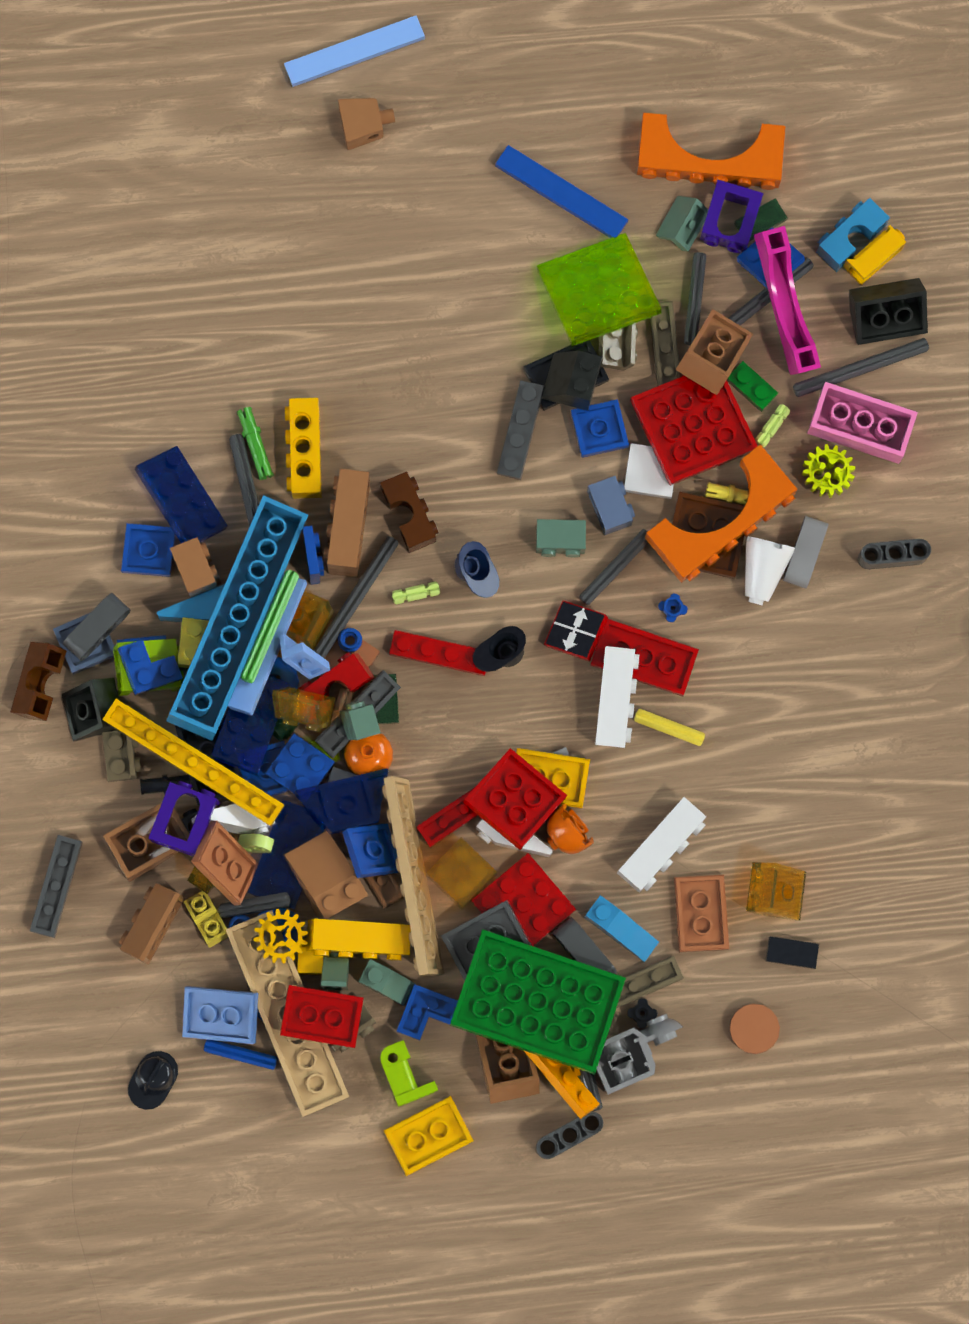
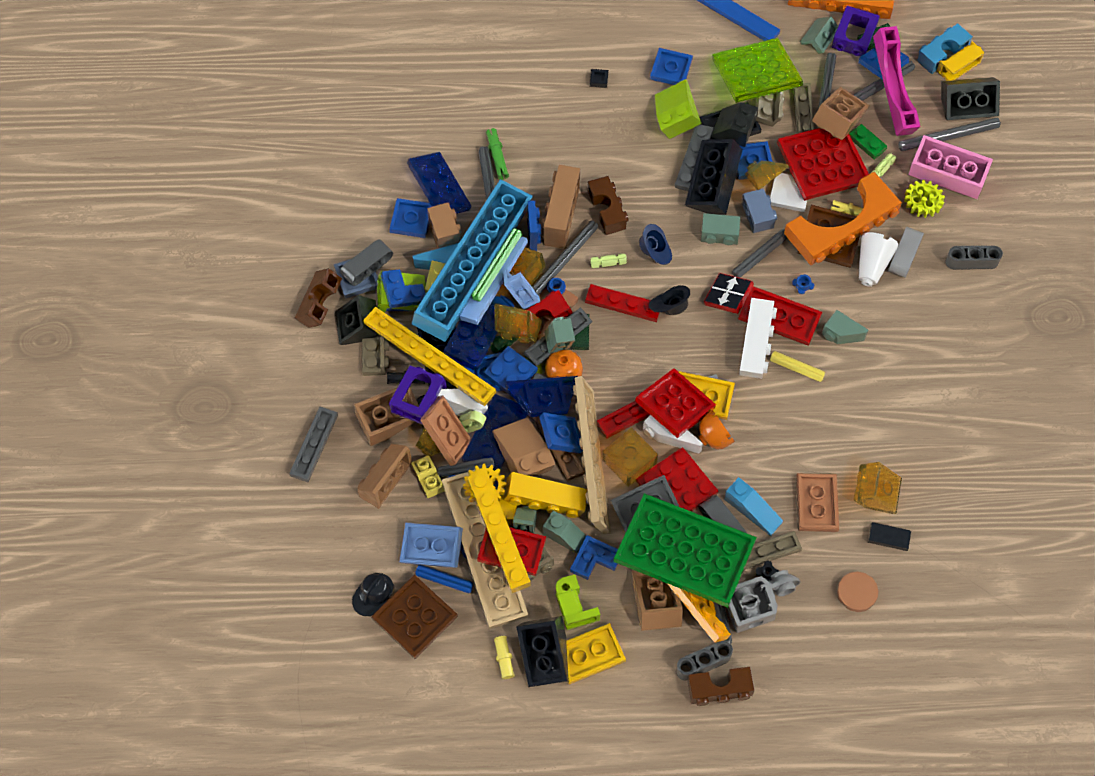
camera: 10 degrees right, 15 degrees down
(208, 1107) = (414, 616): none -> reddish brown plate
(304, 1002) = (499, 531): none -> yellow brick
(310, 485) = (536, 134): yellow brick -> none
(323, 1151) = (504, 657): none -> light yellow pin
(372, 1140) = (544, 651): none -> black slope
(384, 313) = (599, 78): none -> black tile
(482, 290) = (671, 66): none -> blue plate
(491, 359) = (676, 109): none -> lime slope
(548, 461) = (714, 176): none -> black slope
(613, 1164) = (704, 691): none -> reddish brown arch
(616, 451) = (764, 172): none -> clear yellow slope
(661, 845) = (788, 448): white brick -> none
(726, 672) = (843, 329): none -> sand green slope

